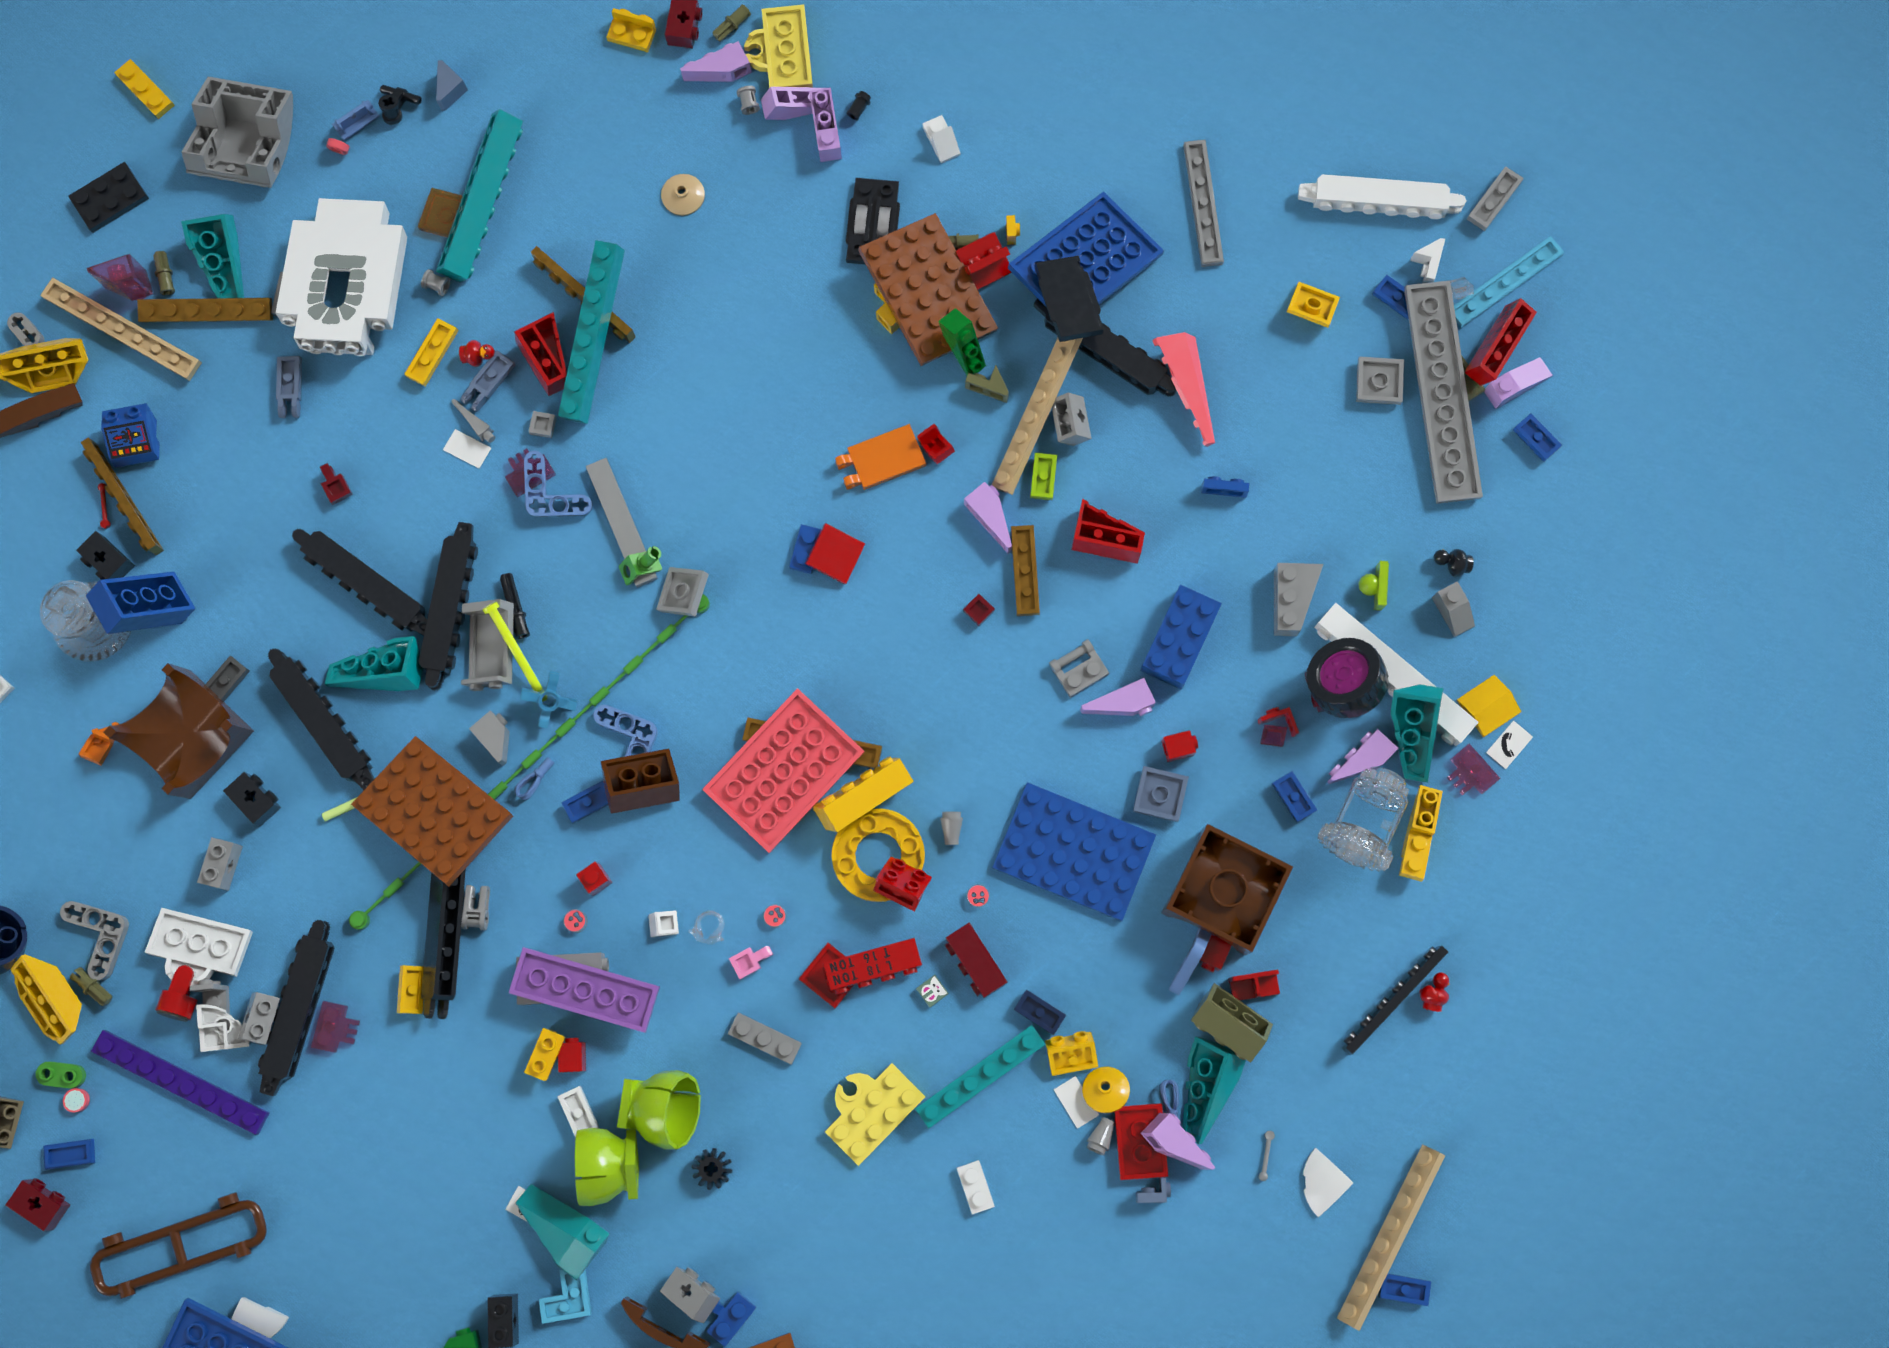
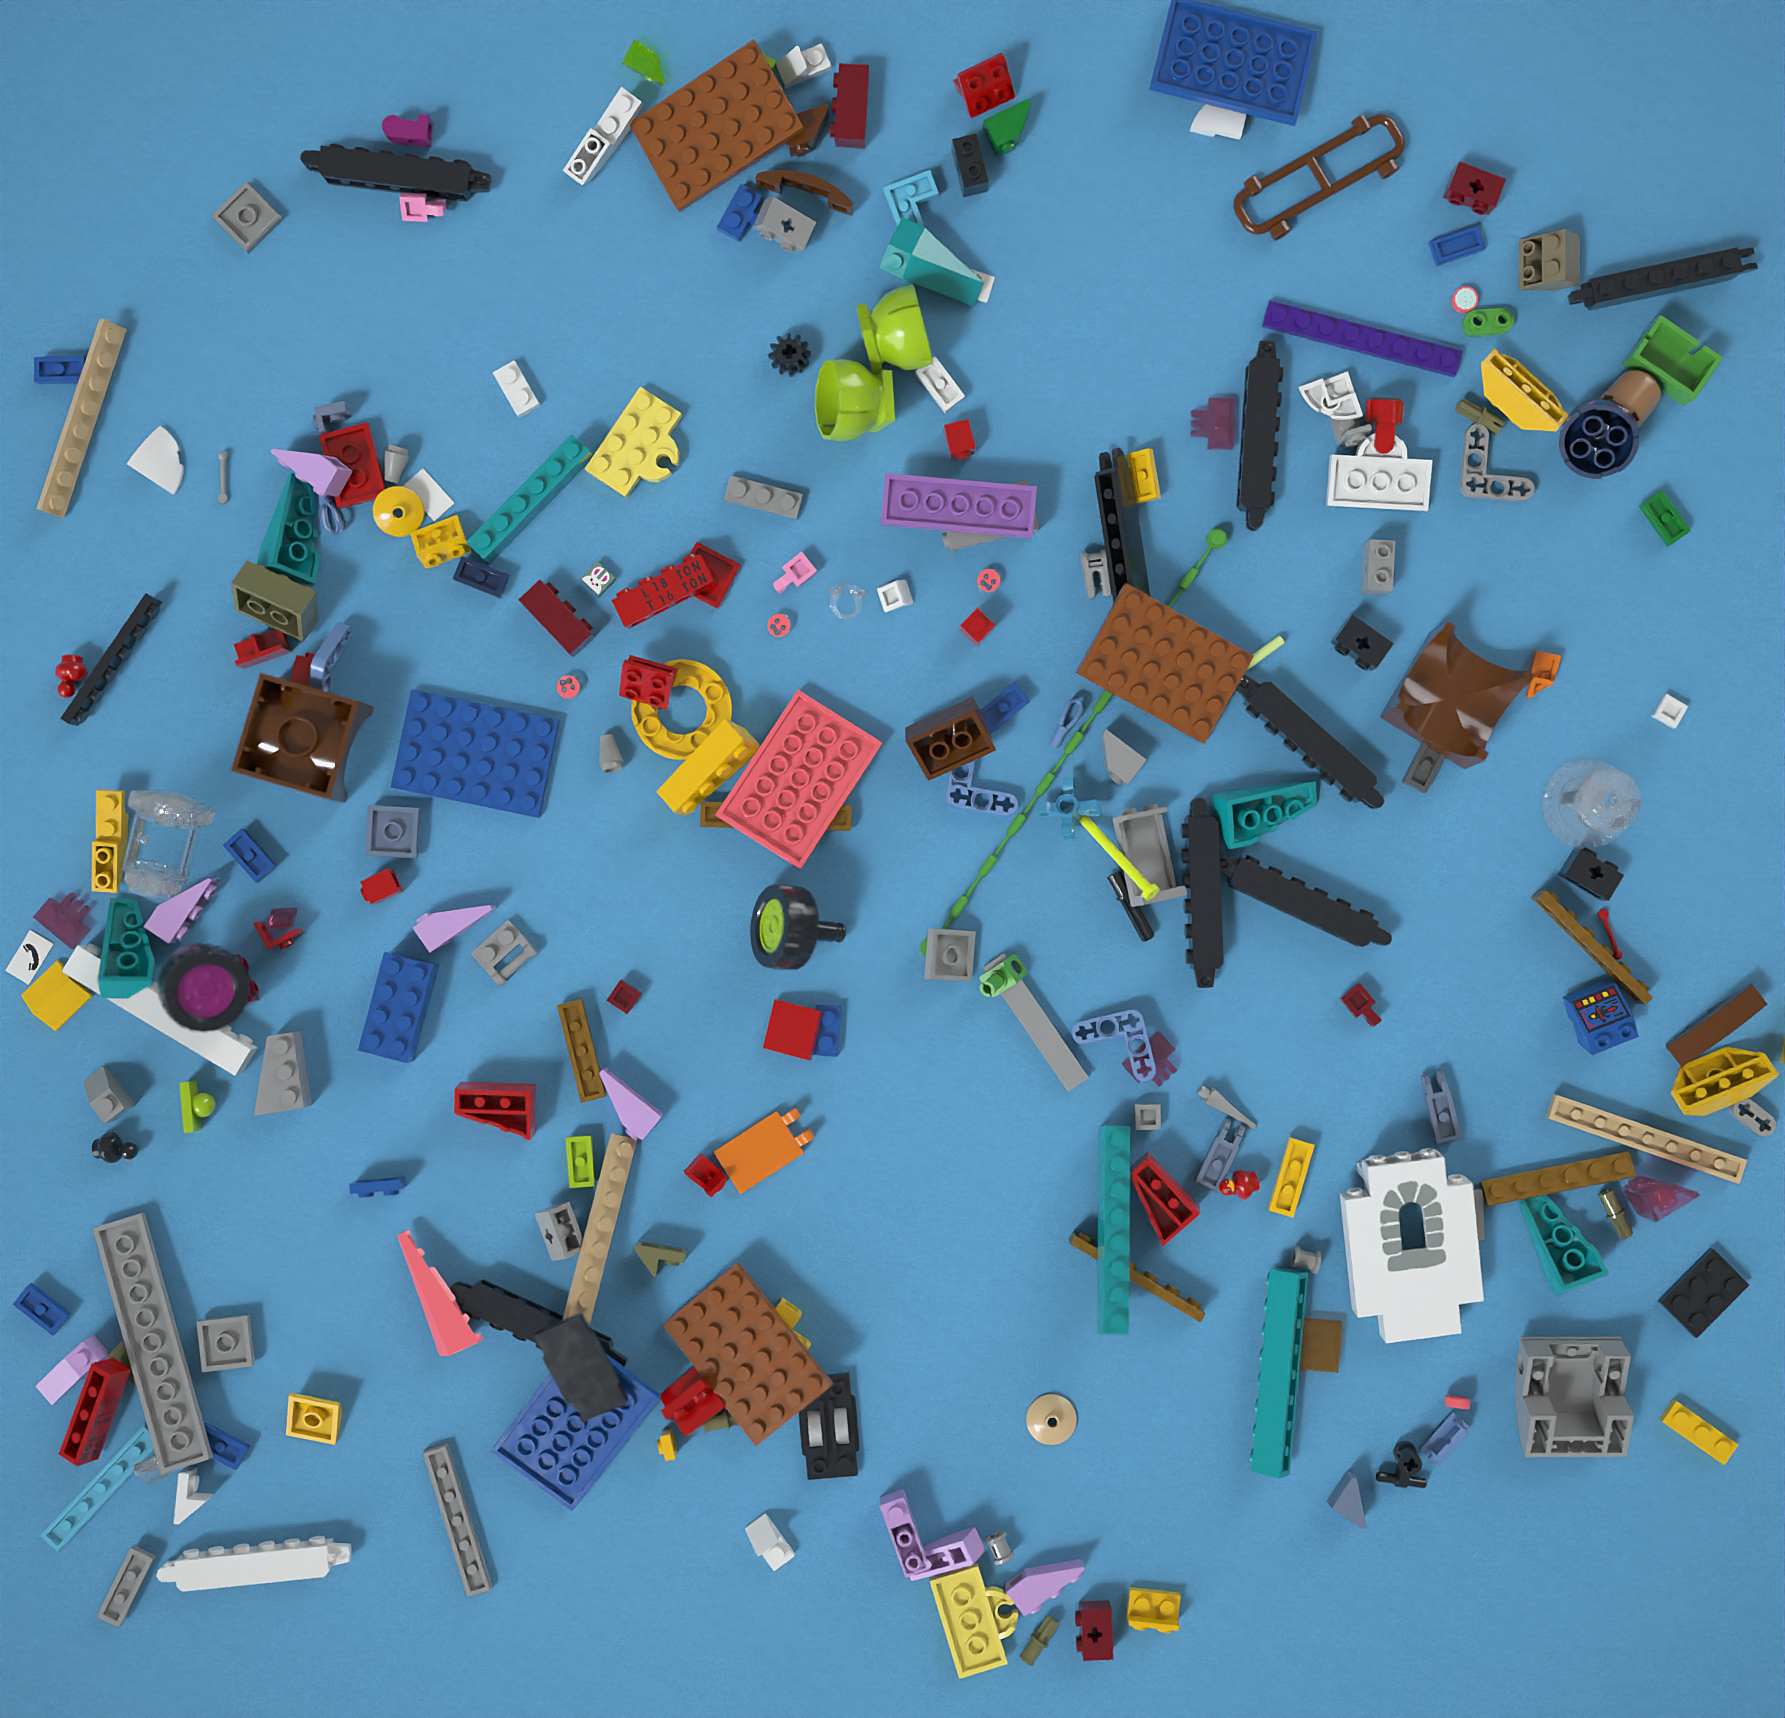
camera: 160 degrees right, 10 degrees up
(140, 602) = (1534, 825): blue brick -> none
(258, 1018) = (1294, 414): light grey brick -> none
(467, 448) = (1225, 1074): white sticker -> none
(544, 1054) = (986, 434): yellow bracket -> none
(818, 637) = (788, 926): none -> black wheel
(861, 101) = (871, 1565): black pin -> none
(963, 341) = (695, 1297): green slope -> none

